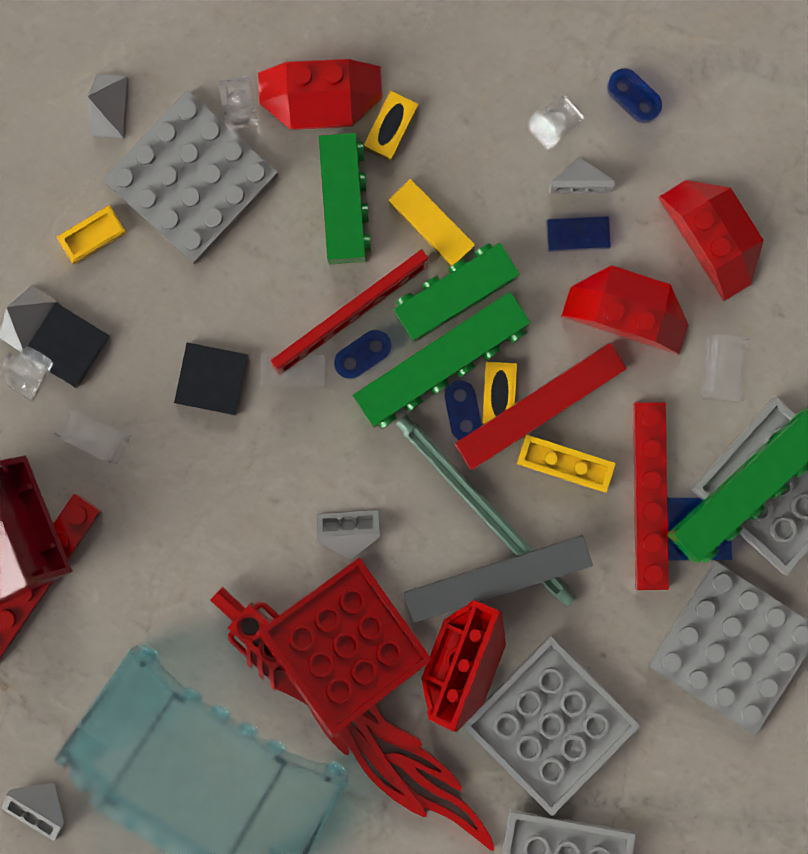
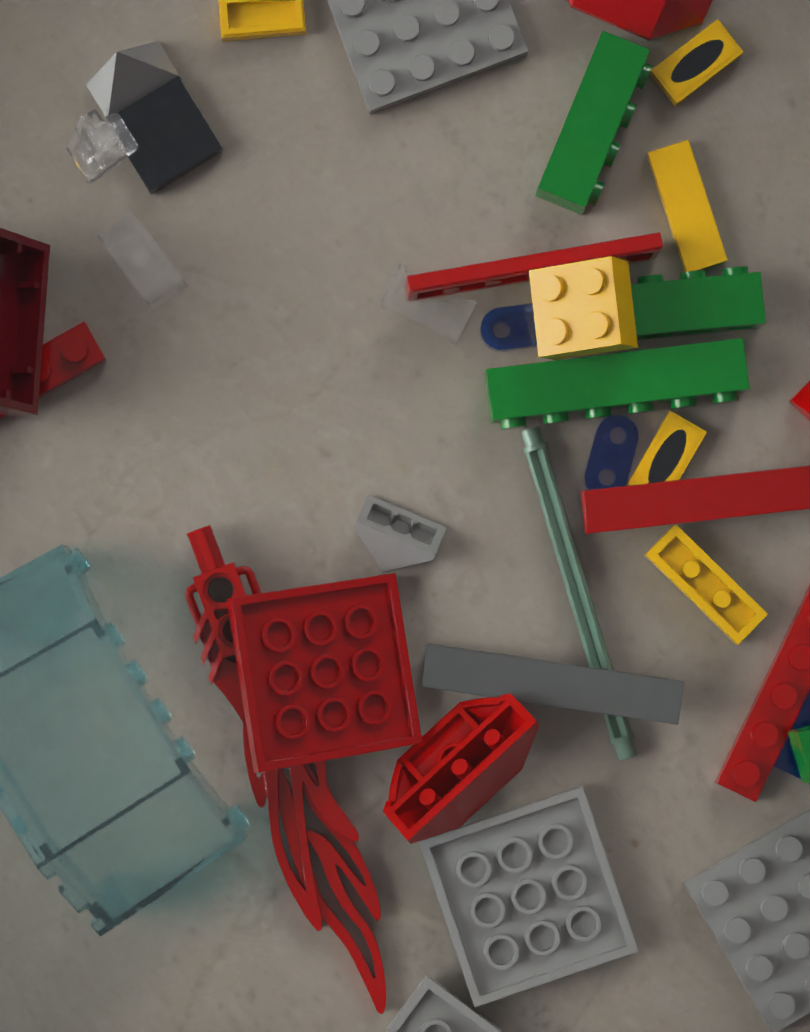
camera: 20 degrees right, 0 degrees up
(211, 378) = (321, 264): black tile -> none
(395, 324) = (583, 308): none -> yellow brick

